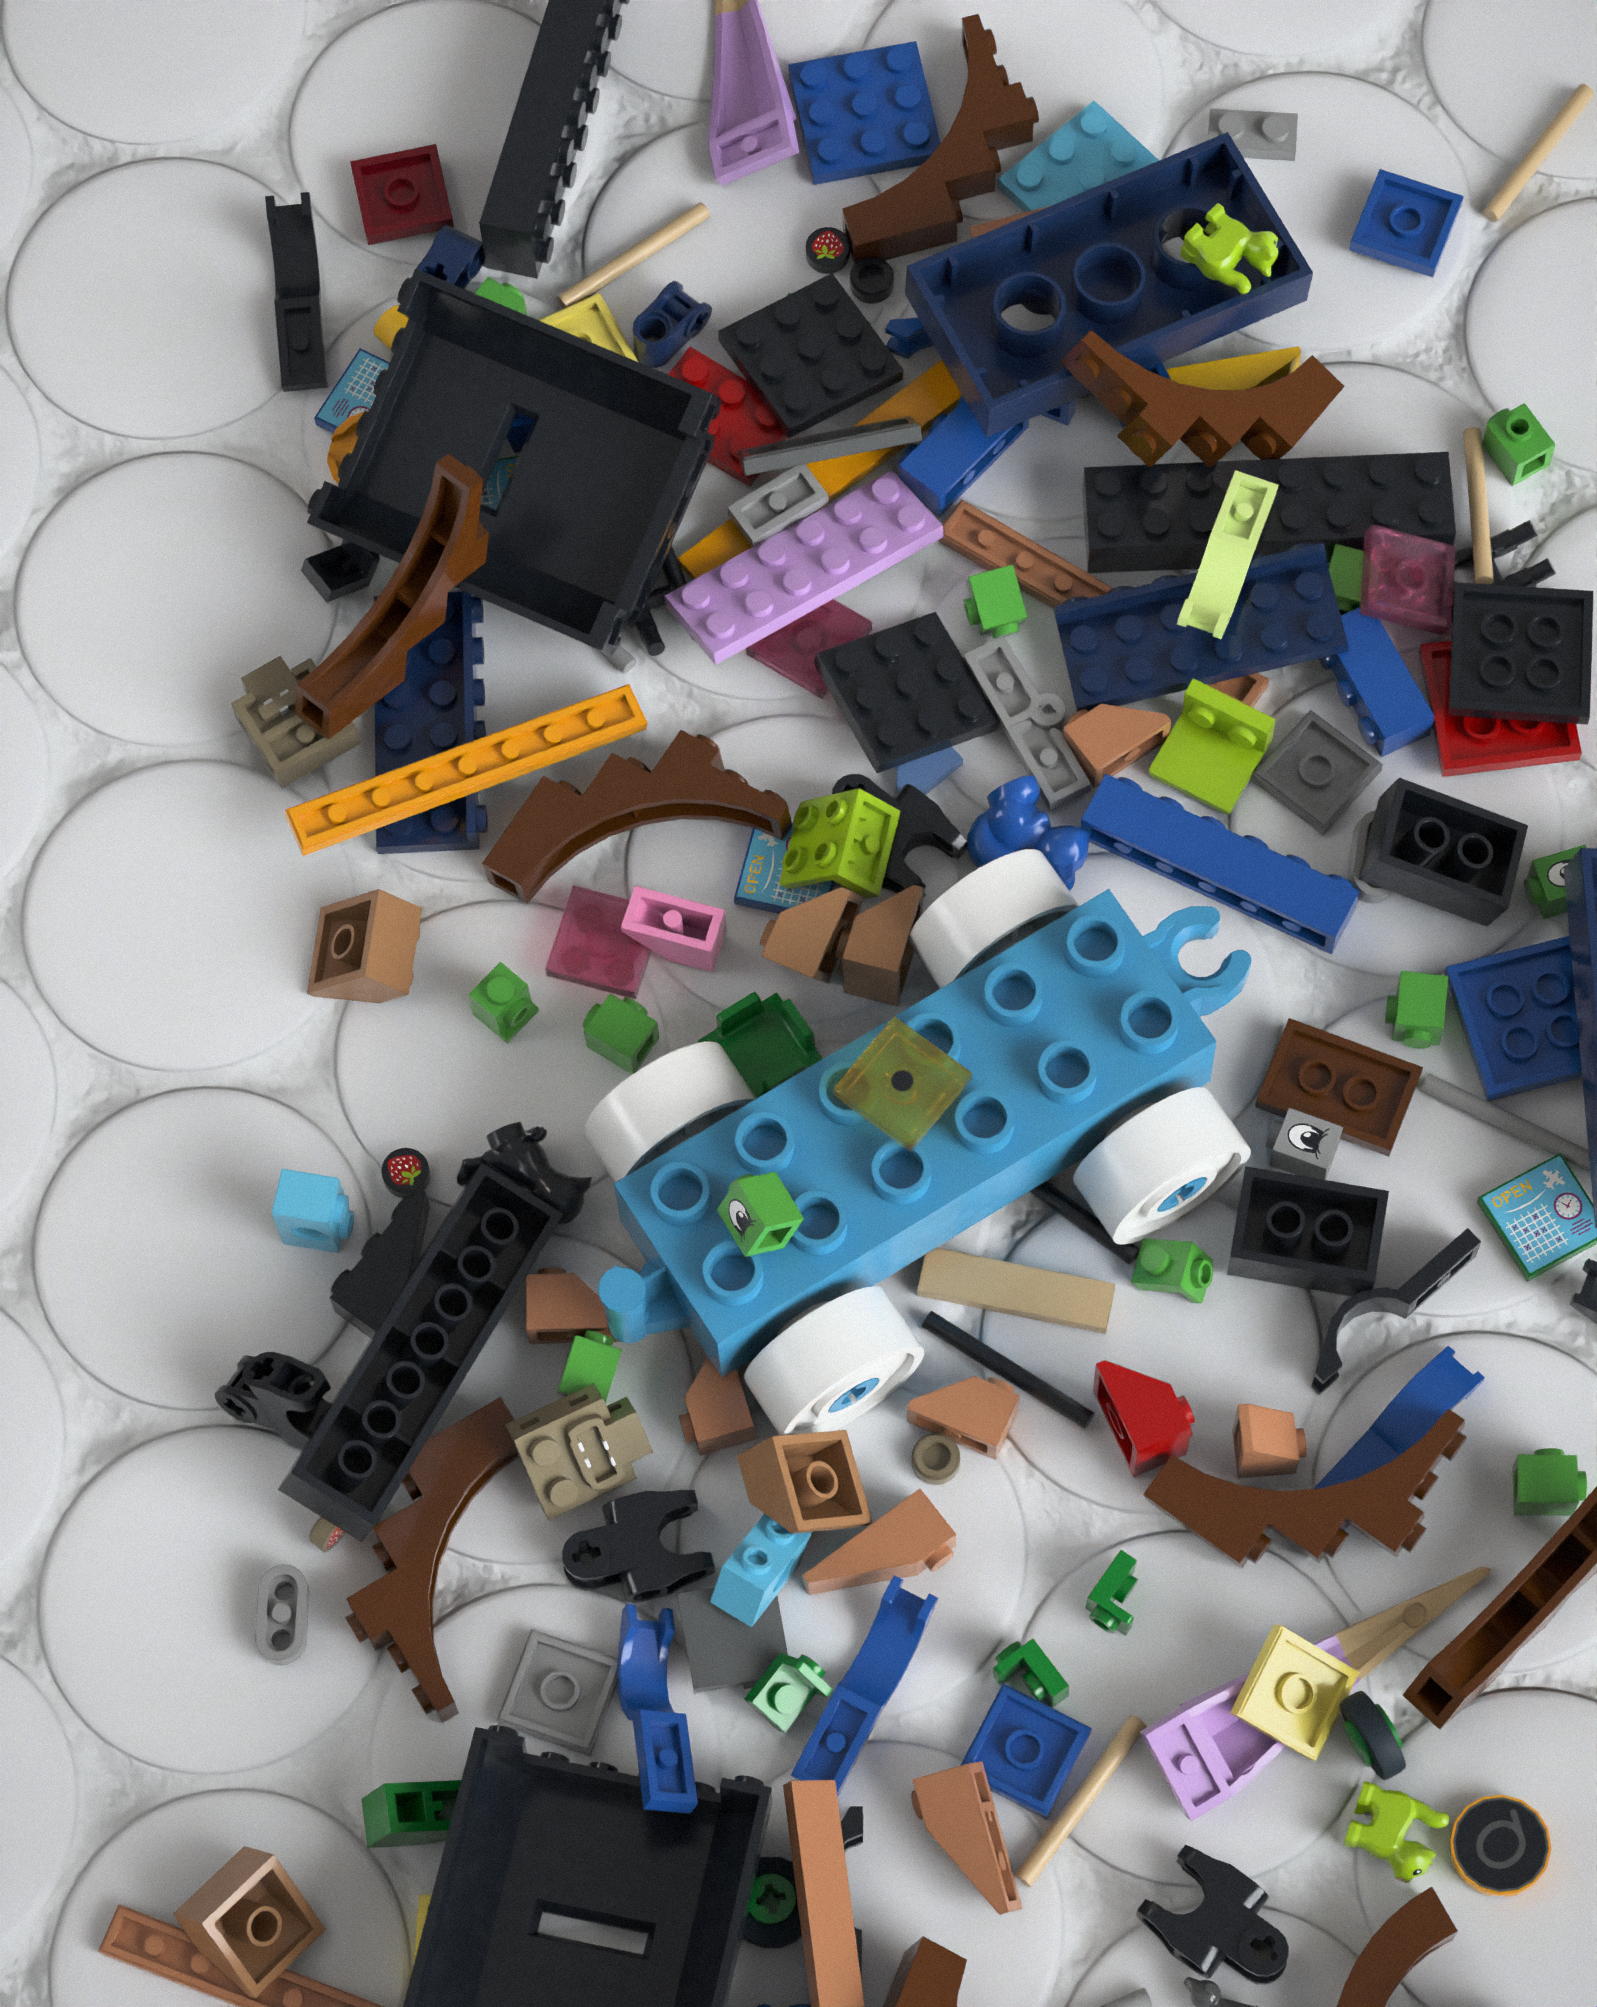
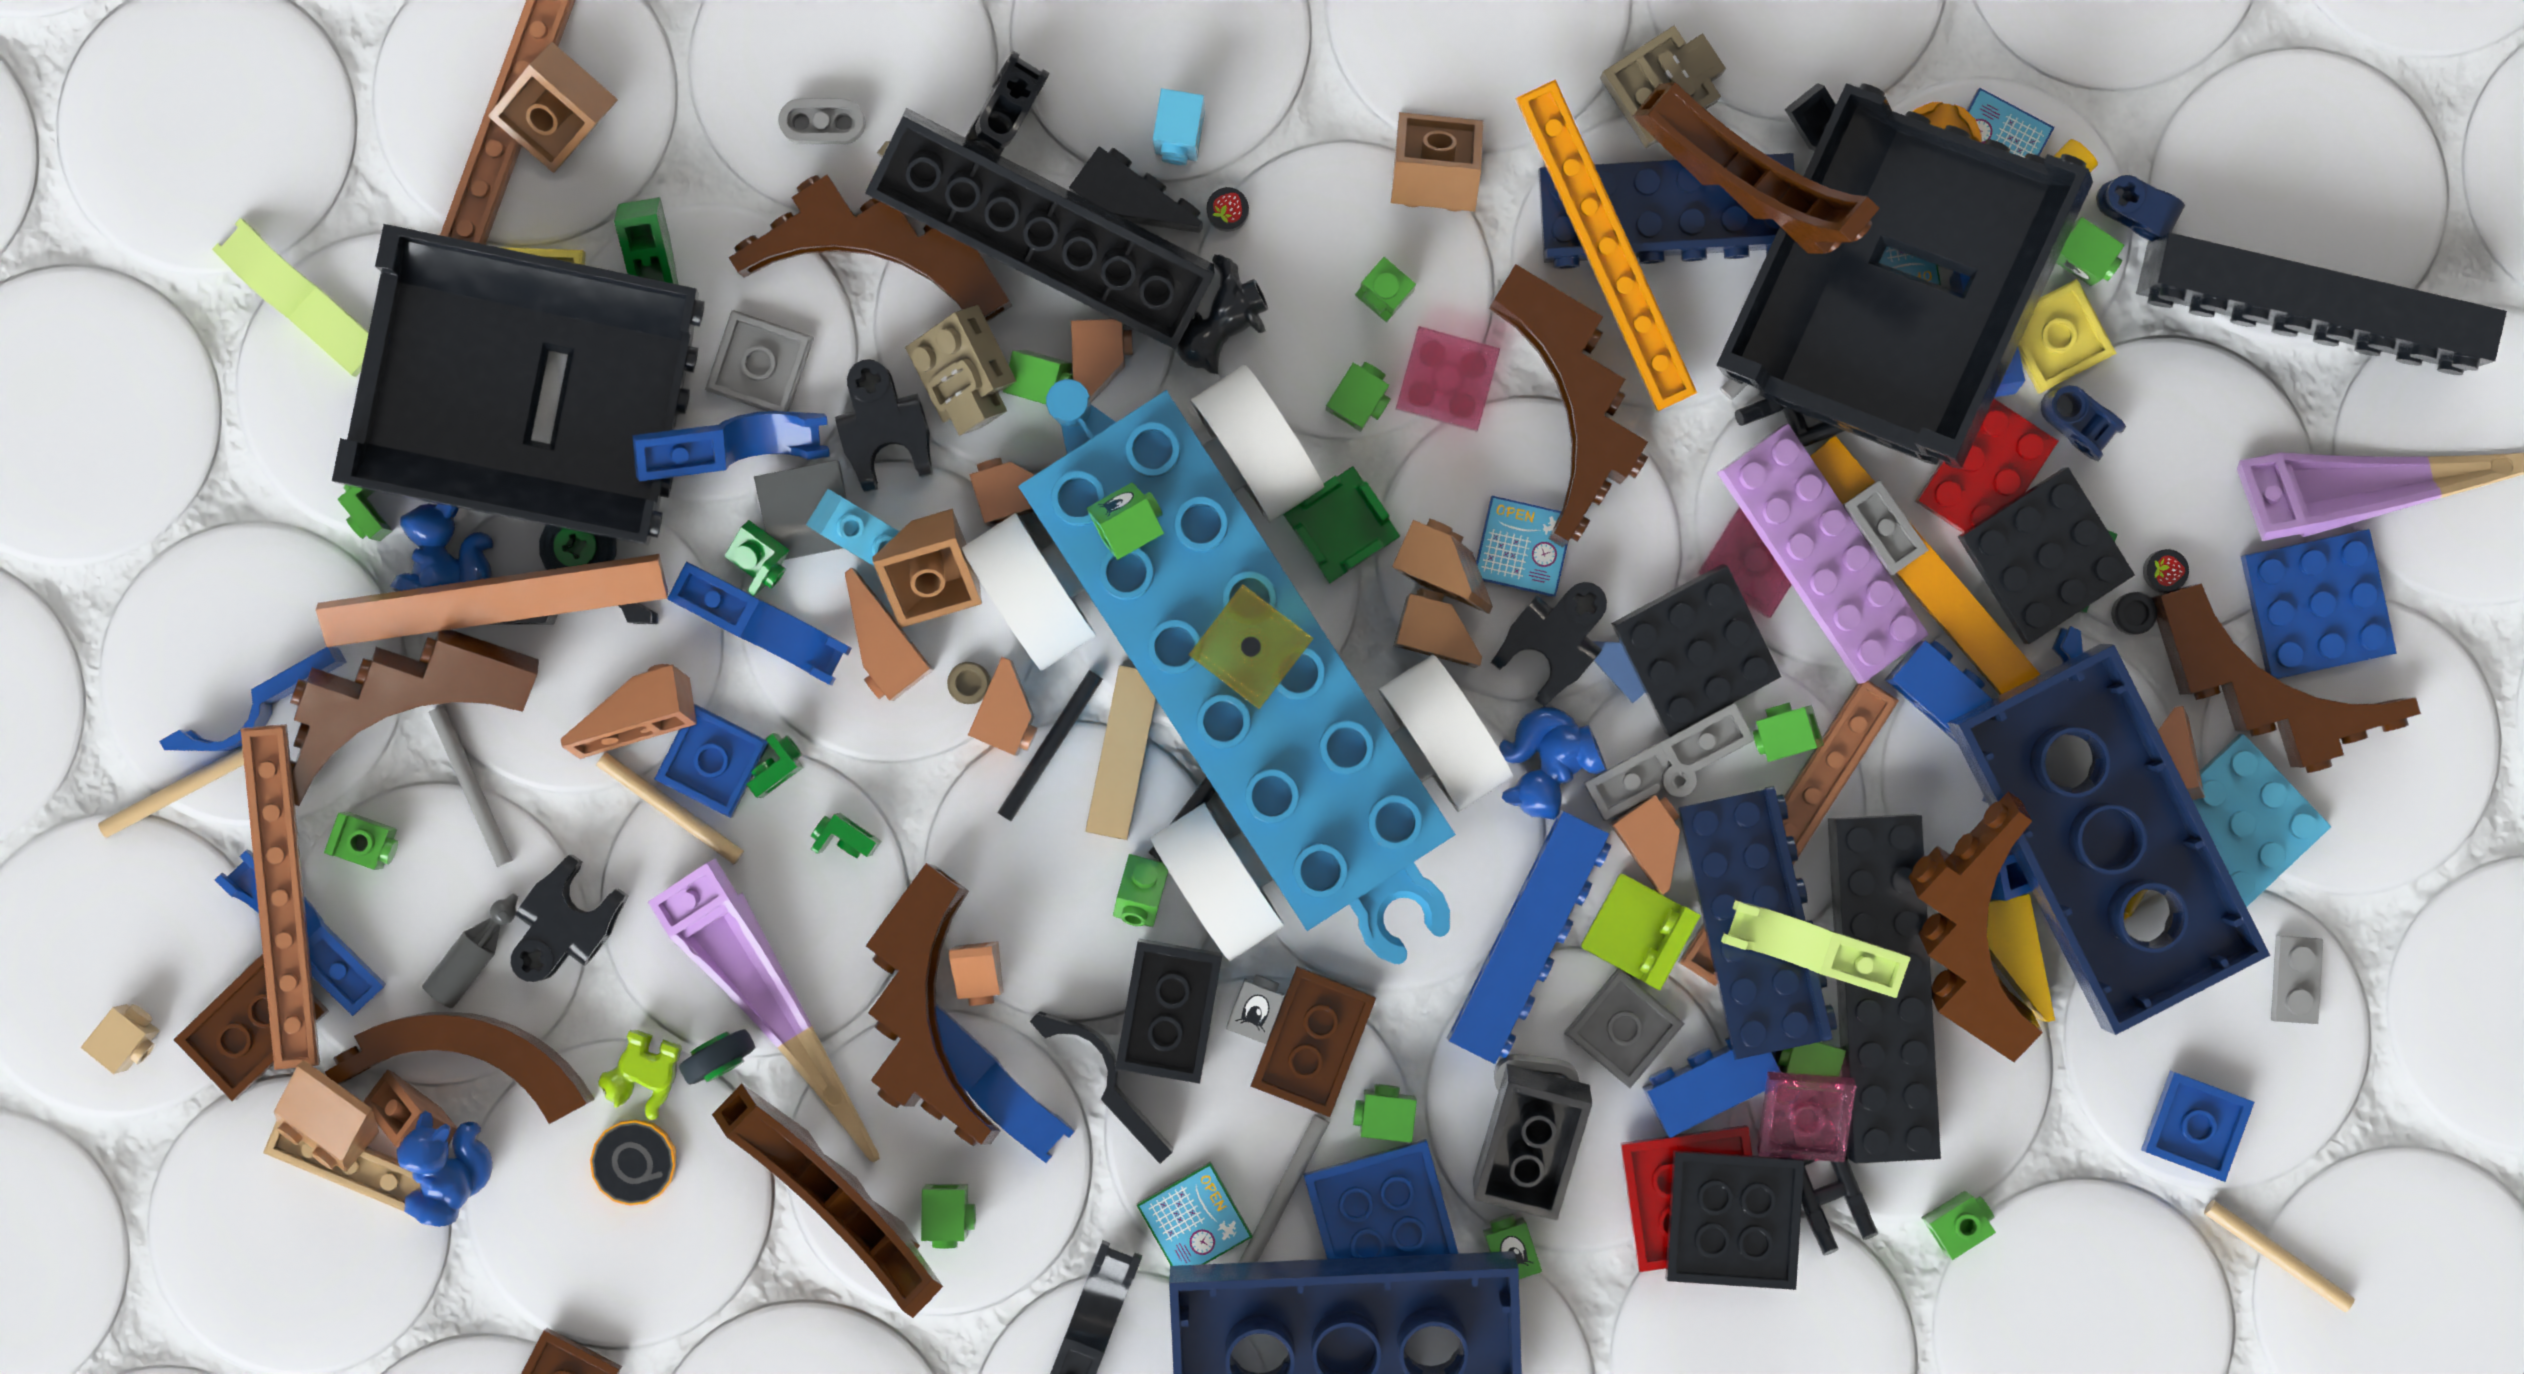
camera: 85 degrees right, 20 degrees up
(297, 295) = (2110, 64): black piece -> none
(401, 194) = (2221, 159): dark red plate -> none
(634, 255) = (2158, 385): tan bar -> none
(676, 927) = (1455, 441): bright pink slope -> none
(829, 445) = (1945, 575): dark grey tile -> none
(841, 840) = (1534, 590): lime bracket -> none
(1142, 1416) = (993, 864): red slope -> none
(1226, 246) = (2140, 956): lime animal -> none
(1294, 1692) = (755, 991): light yellow tile -> none
(1478, 506) = (1893, 1185): tan bar -> none

